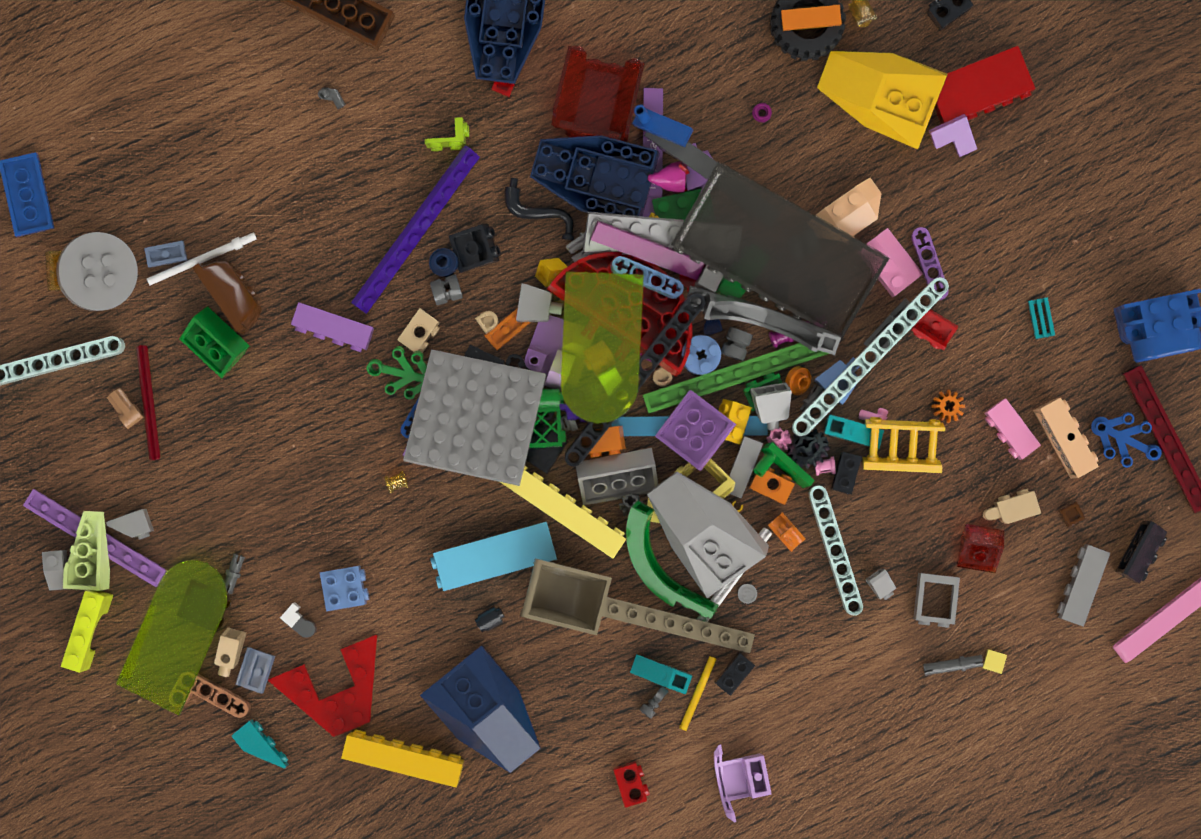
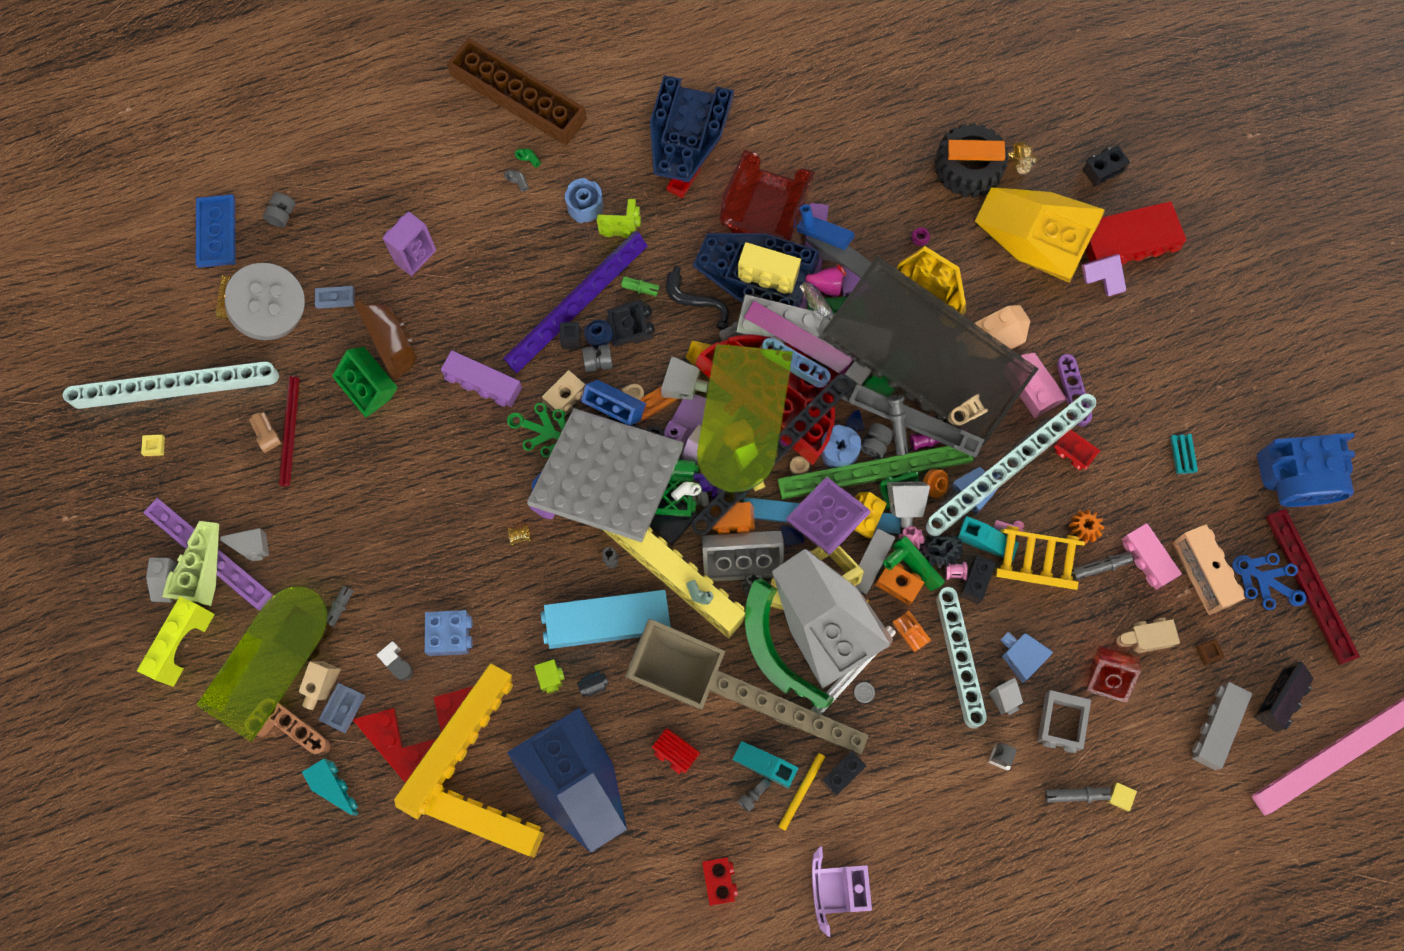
camera: 10 degrees right, 15 degrees down
(14, 434) = (153, 445): none -> light yellow tile
(87, 171) = (279, 209): none -> dark grey wheel
(234, 192) = (409, 243): none -> medium lavender brick
(237, 243) = (402, 296): white bar -> none
(339, 66) = (528, 155): none -> green arm
(370, 690) = (453, 742): none -> yellow brick
(410, 105) = (584, 200): none -> medium blue brick
(415, 268) = (570, 335): none -> black panel
(447, 616) = (549, 676): none -> lime brick
(469, 337) = (613, 402): none -> blue brick
(478, 204) = (639, 286): none -> bright green axle
(484, 496) = (610, 557): none -> dark grey pin
(555, 420) = (686, 488): none -> white arm
(576, 672) = (676, 751): none -> red brick
(580, 529) = (698, 595): none -> sand green arm
(609, 179) = (768, 268): none -> light yellow brick
(661, 450) = (791, 536): none -> clear blue tile
(662, 207) = (816, 301): none -> clear plate
(754, 321) = (897, 417): none -> dark grey pin
(781, 173) = (936, 276): none -> yellow wedge
(823, 310) = (969, 409): none -> tan piece
(881, 639) = (1002, 756): none -> dark grey leg
(895, 540) = (1024, 655): none -> medium blue torso
(973, 439) = (1109, 563): none -> dark grey pin

